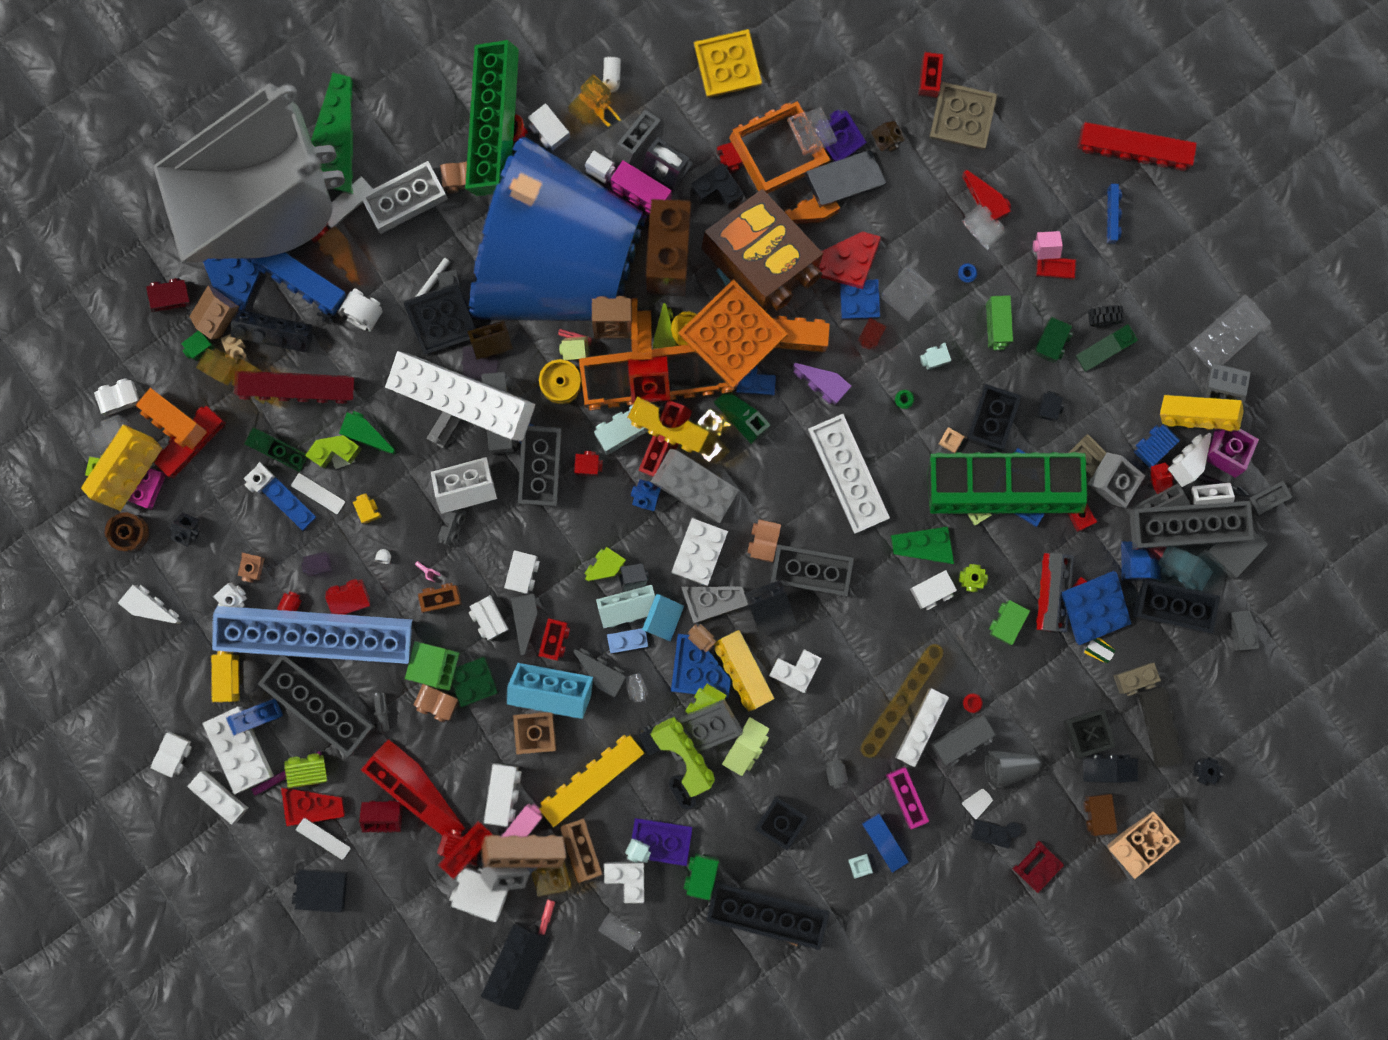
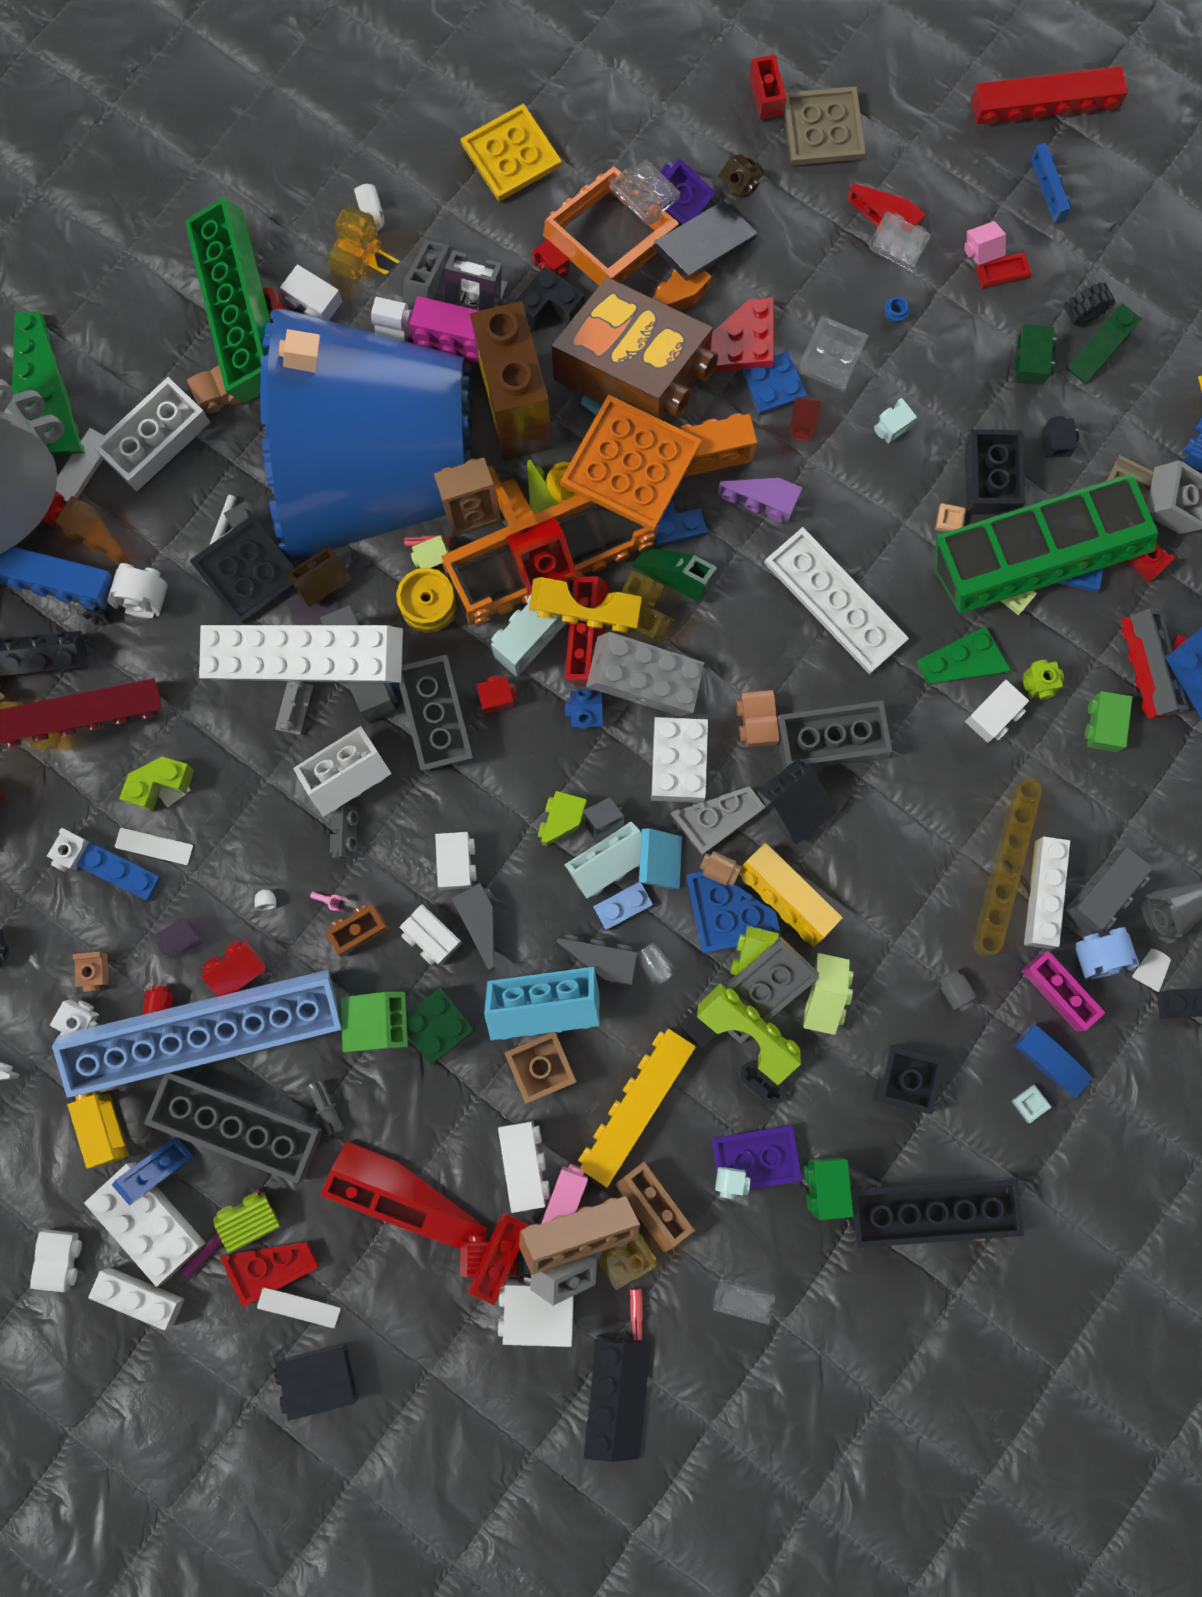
camera: 15 degrees left, 5 degrees down
(275, 449) = (79, 805): dark green slope -> none
(360, 430) = (189, 747): green slope -> none
(366, 509) = (223, 845): yellow brick -> none
(381, 816) = (368, 1251): dark red brick -> none
(436, 702) = (395, 1070): nougat brick -> none
(553, 639) = (525, 935): red brick -> none
(631, 875) = (729, 1217): white brick -> none
(798, 675) = (862, 878): white brick -> none
(906, 393) = (876, 480): green plate -> none
(946, 783) = (1106, 954): none -> light blue brick
(972, 703) = (1099, 840): red plate -> none
(999, 322) = (960, 351): bright green brick -> none

